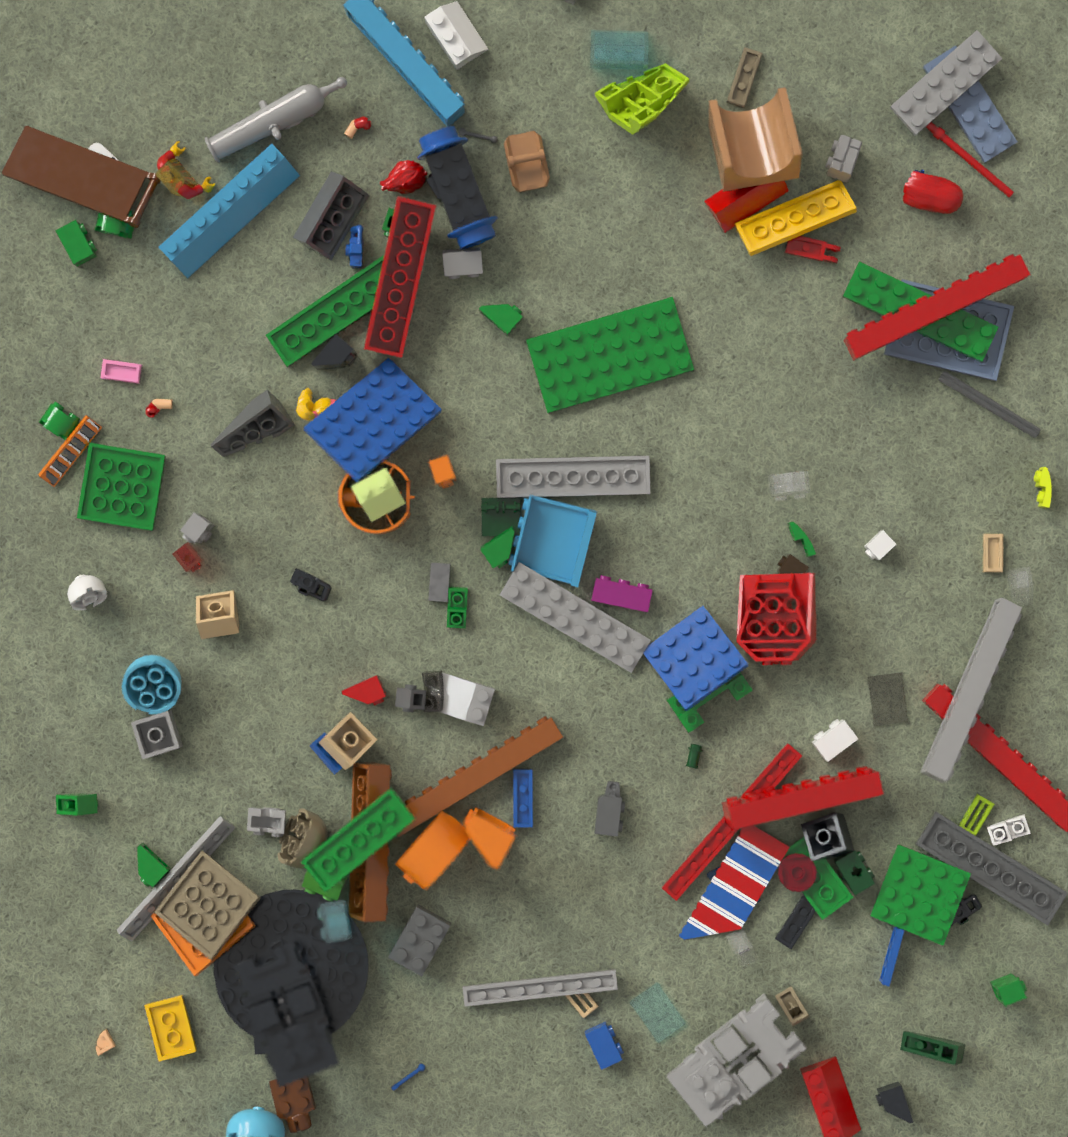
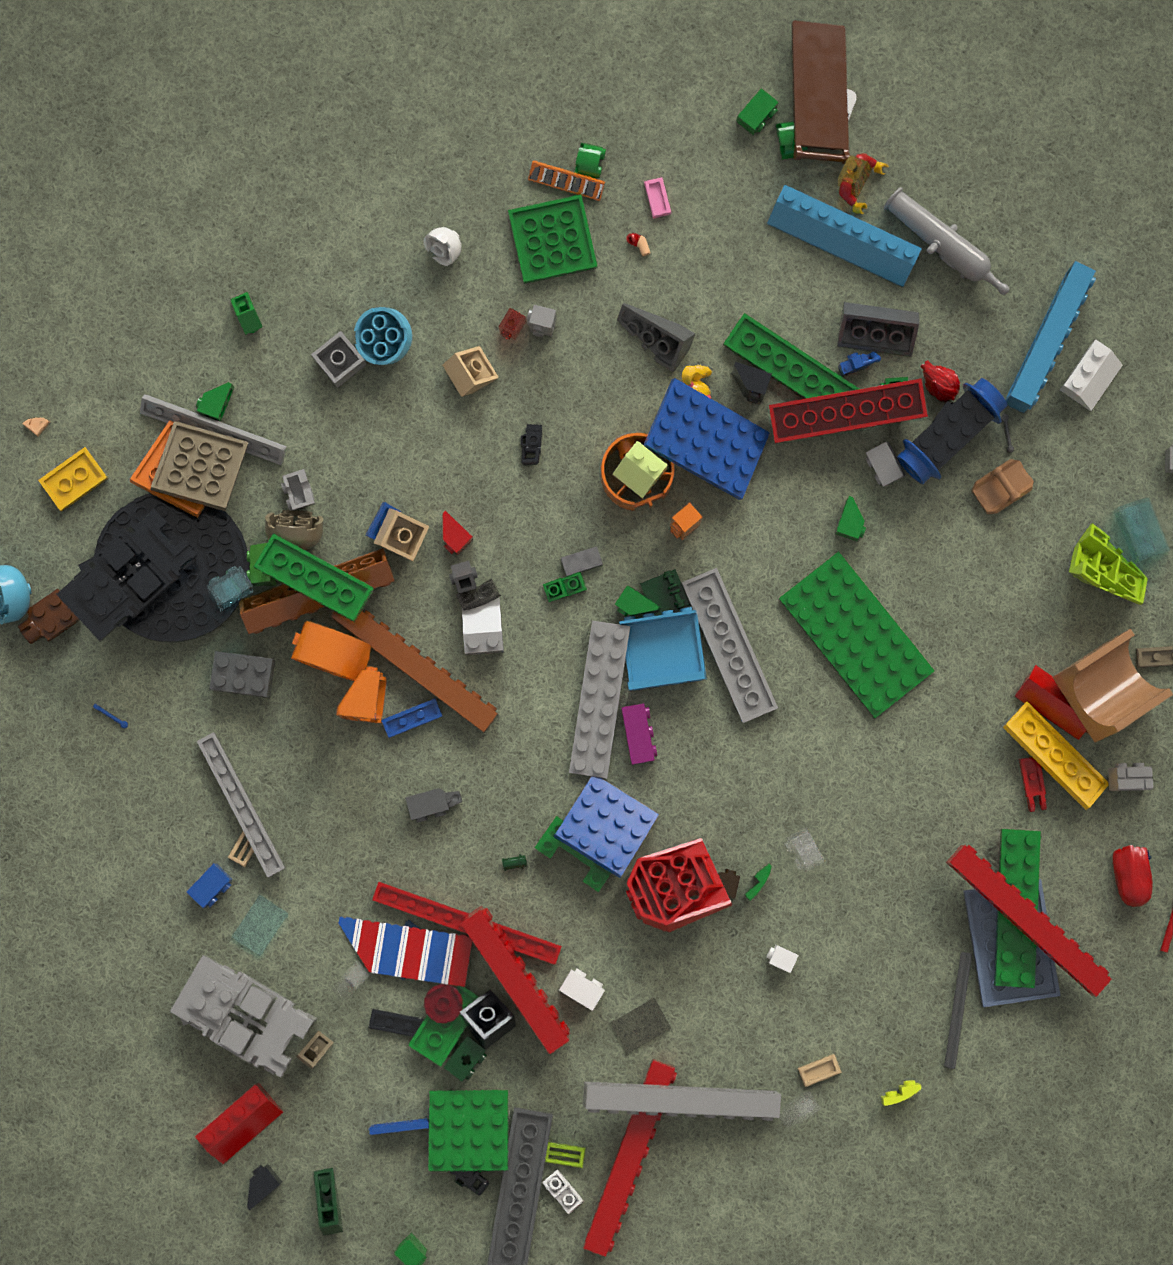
camera: 65 degrees right, 5 degrees down
(356, 124) = (971, 319): arm -> none

